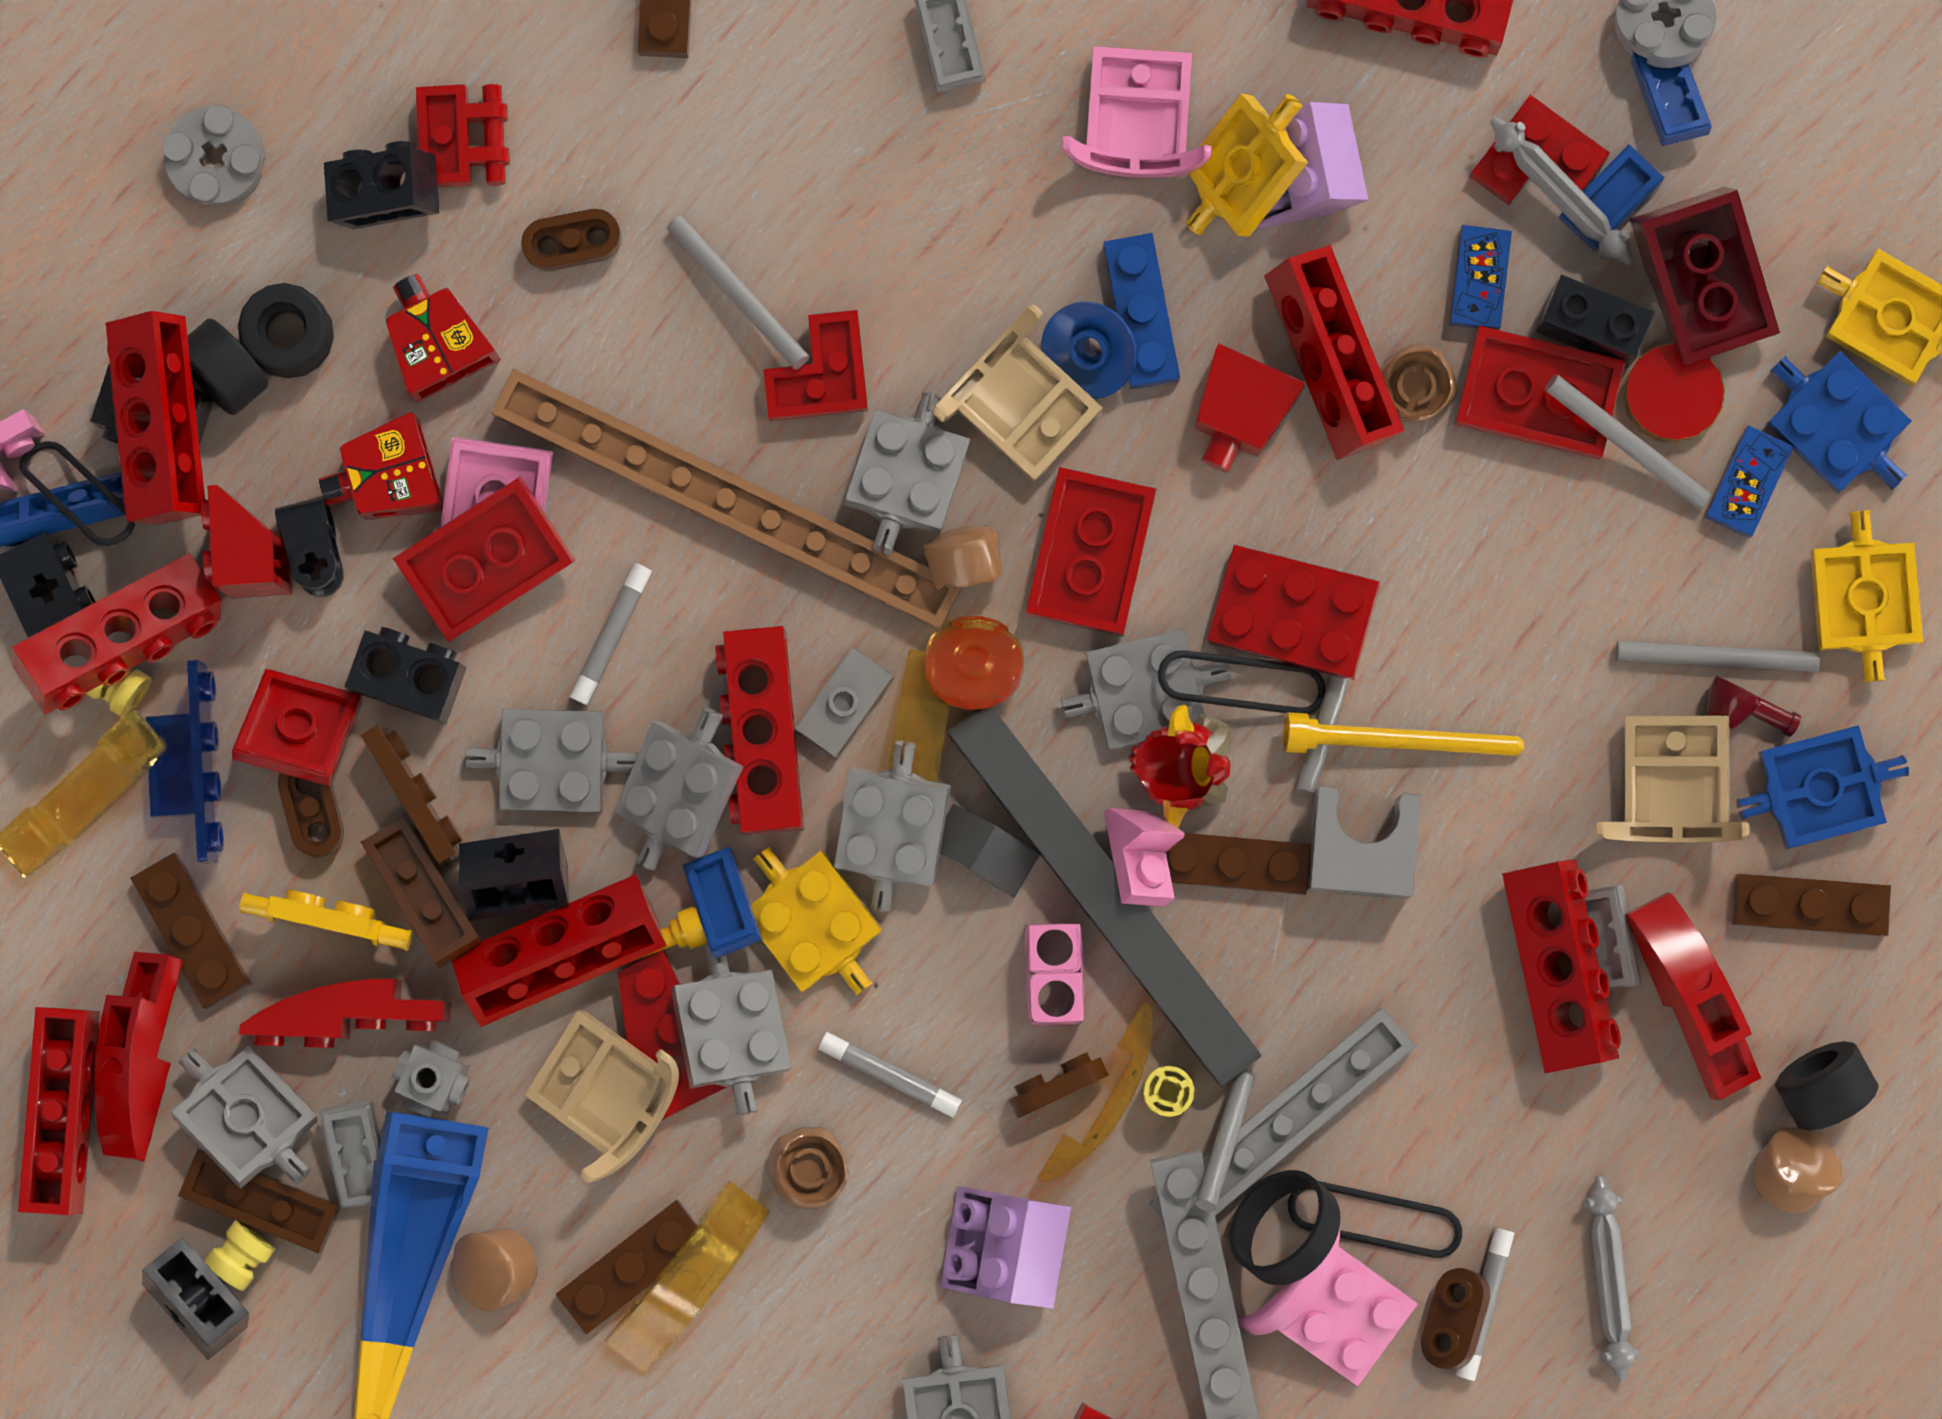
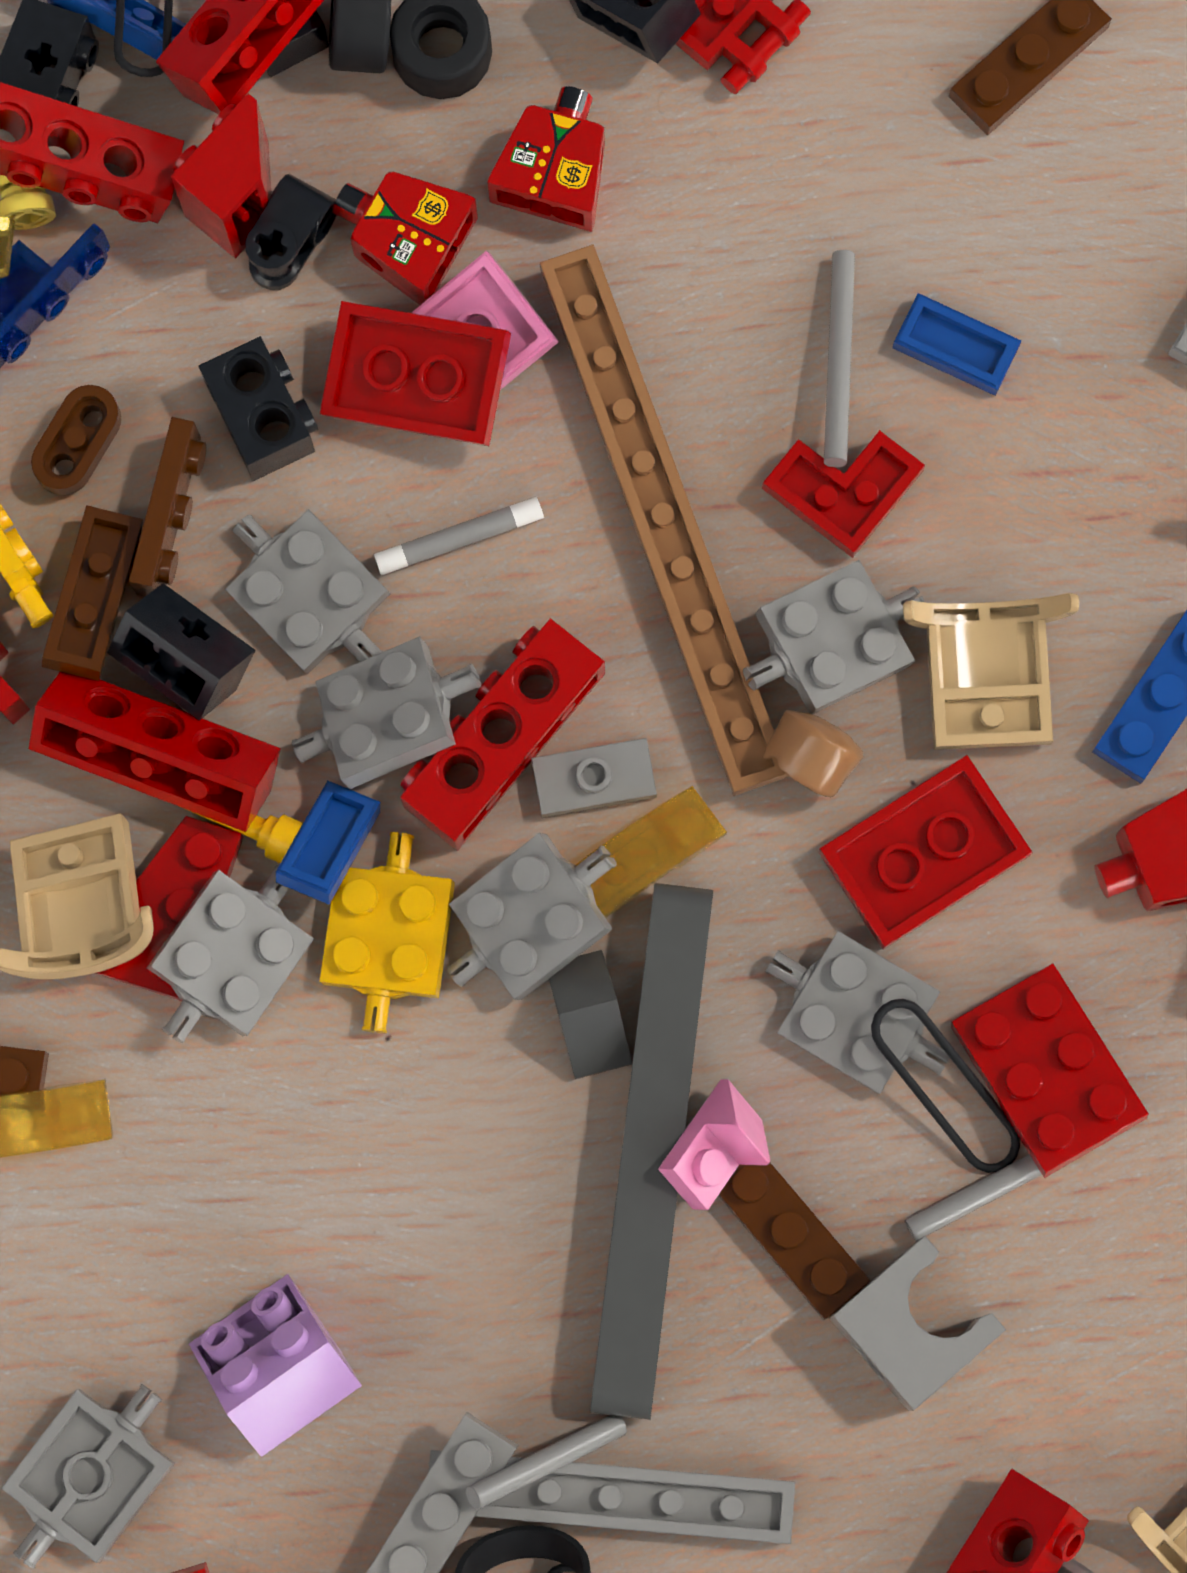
camera: 40 degrees right, 5 degrees down
(297, 727) = (129, 364): red plate -> none
(571, 235) = (748, 187): reddish brown plate -> none
(800, 212) = (956, 344): none -> blue tile
(808, 1167) = (179, 1132): medium nougat hair -> none
(890, 1074) = (324, 1124): light grey bar -> none
(974, 662) = (734, 848): tile -> none
(1037, 1093) = (429, 1261): reddish brown plate -> none
(1047, 973) = (551, 1180): bright pink piece -> none
(1068, 346) = (1074, 663): blue dish -> none
(1136, 1043) = (408, 1337): clear yellow slope -> none
(1167, 1097) = (549, 1371): light yellow wheel -> none
(1184, 764) = (828, 1105): red hair -> none
(1305, 733) = (957, 1180): yellow piece -> none

